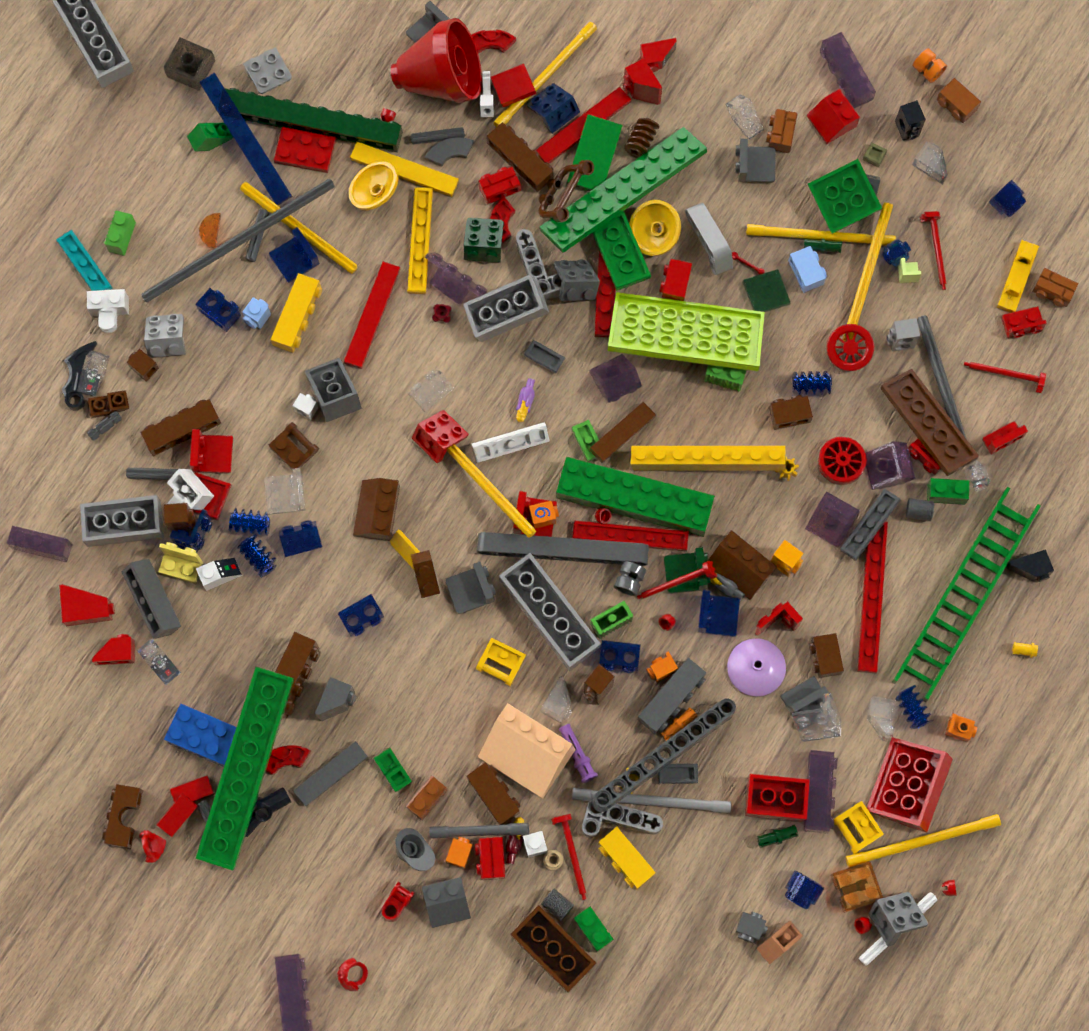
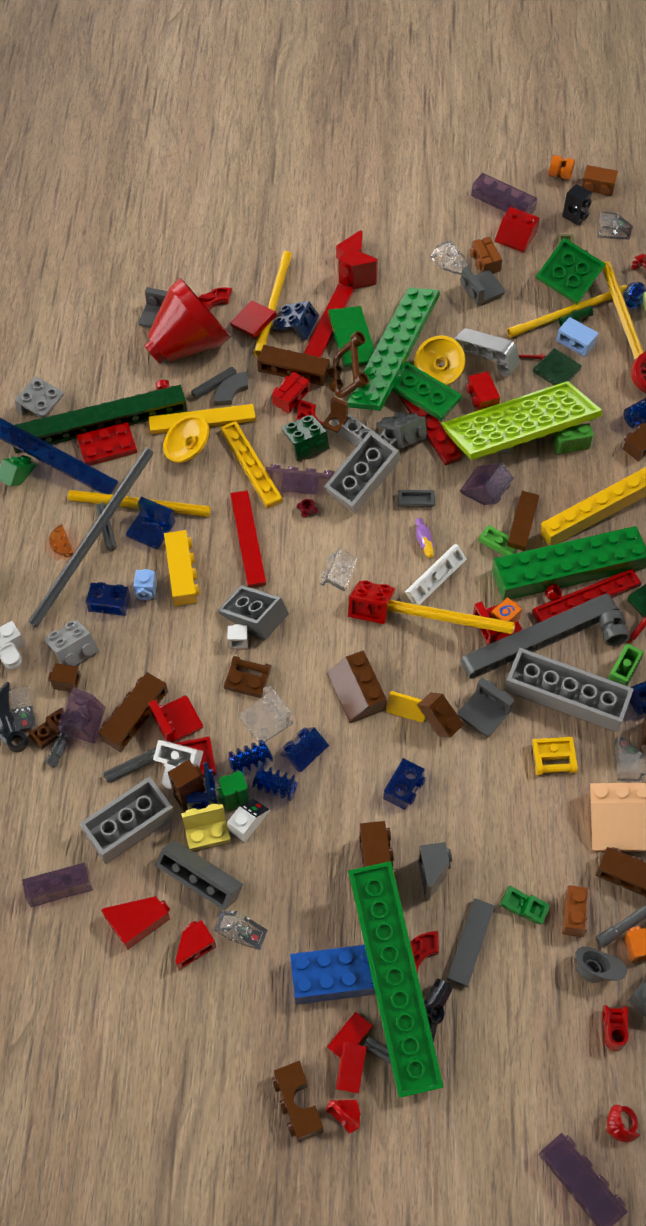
camera: 30 degrees left, 15 degrees down
(135, 409) = (81, 715): none -> slope
(217, 544) = (232, 791): none -> green brick
(486, 99) = (240, 340): white piece -> none
(523, 234) = (339, 411): none -> reddish brown bracket
(640, 136) = (381, 307): reddish brown piece -> none

